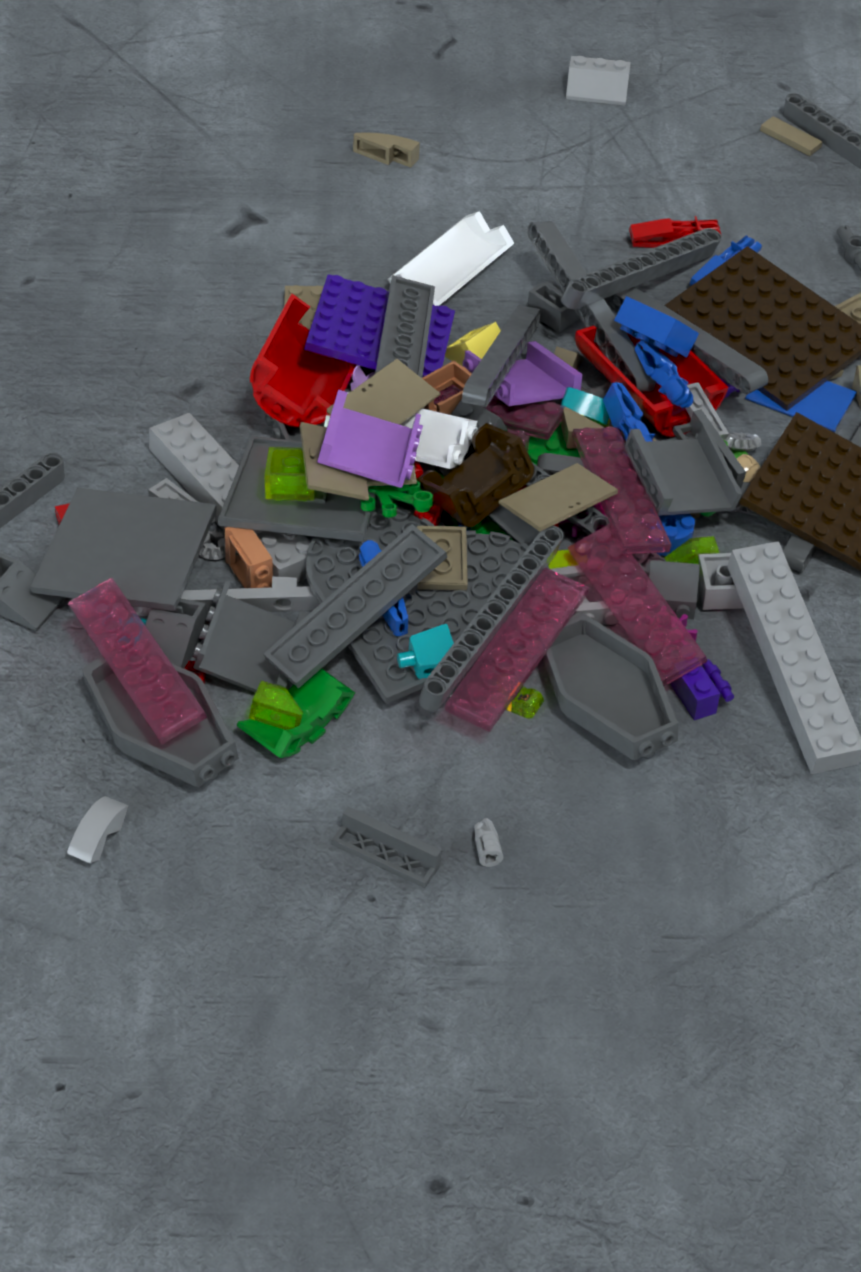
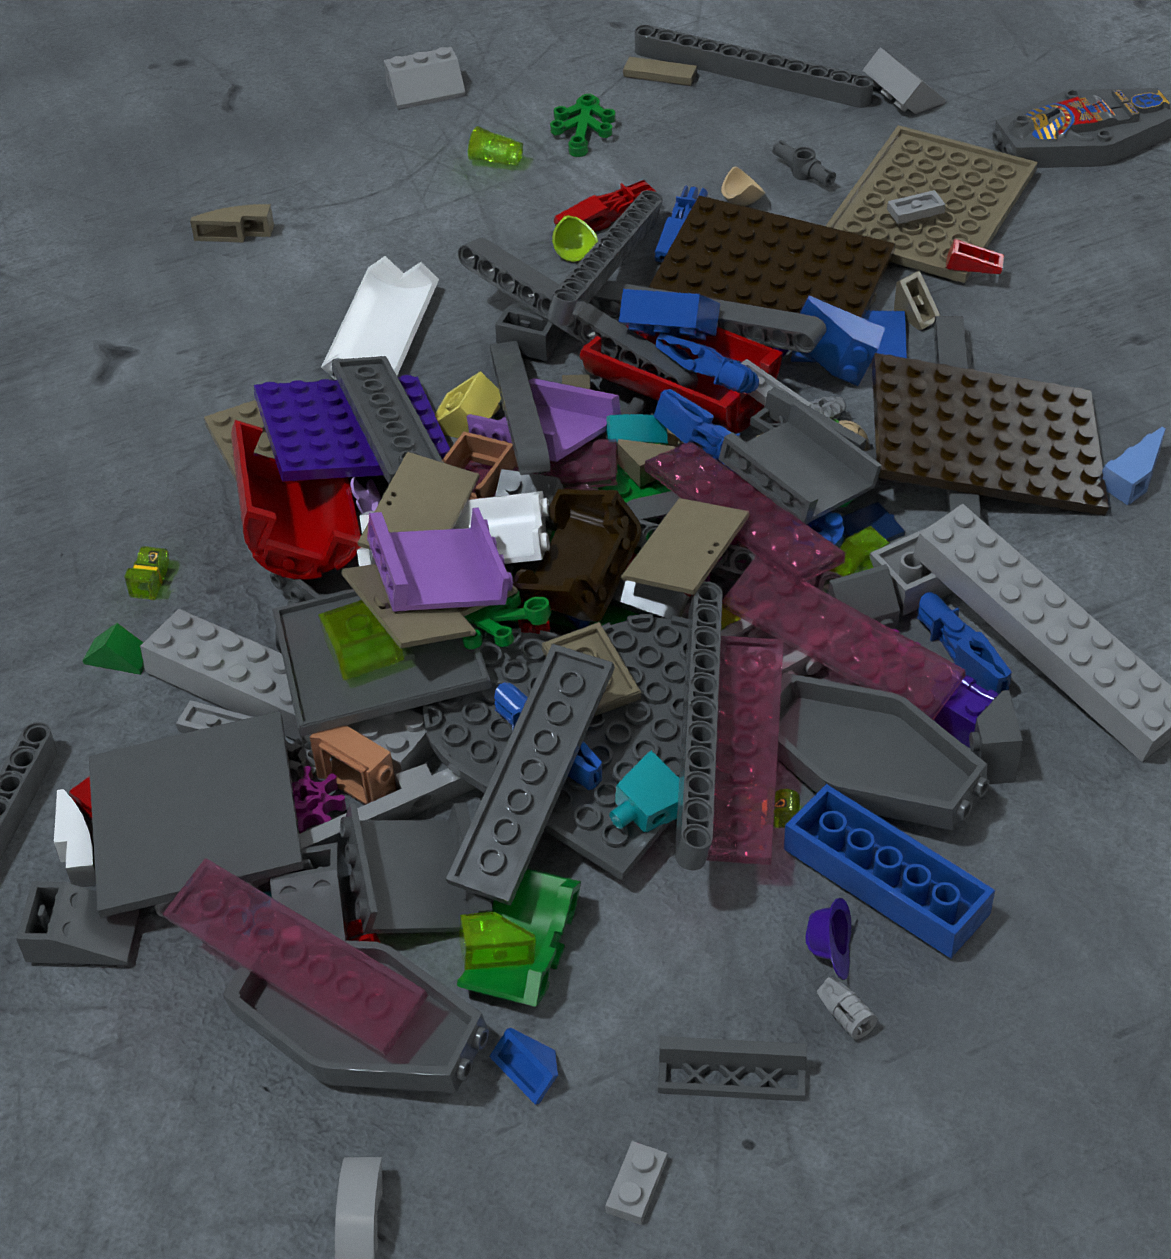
camera: 20 degrees left, 0 degrees up
(40, 537) = (74, 841): none -> white slope
(135, 427) = (116, 650): none -> green slope
(186, 380) = (149, 569): none -> clear neon green leg
(210, 573) = (314, 801): none -> magenta gear
(255, 790) = (526, 1063): none -> blue slope
(283, 889) = (636, 1182): none -> light grey plate
(506, 794) = (830, 935): none -> dark purple piece
(571, 768) = (889, 870): none -> blue brick
(617, 154) = (494, 147): none -> clear neon green plant
(632, 242) = (573, 238): none -> lime helmet
(702, 715) = (998, 739): none -> dark grey slope
(713, 144) = (587, 106): none -> green plant
(726, 535) = (874, 516): none -> dark blue piece
(730, 642) = (965, 646): none -> blue arm
(783, 394) = (848, 342): none -> blue slope
(791, 252) = (741, 188): none -> tan helmet

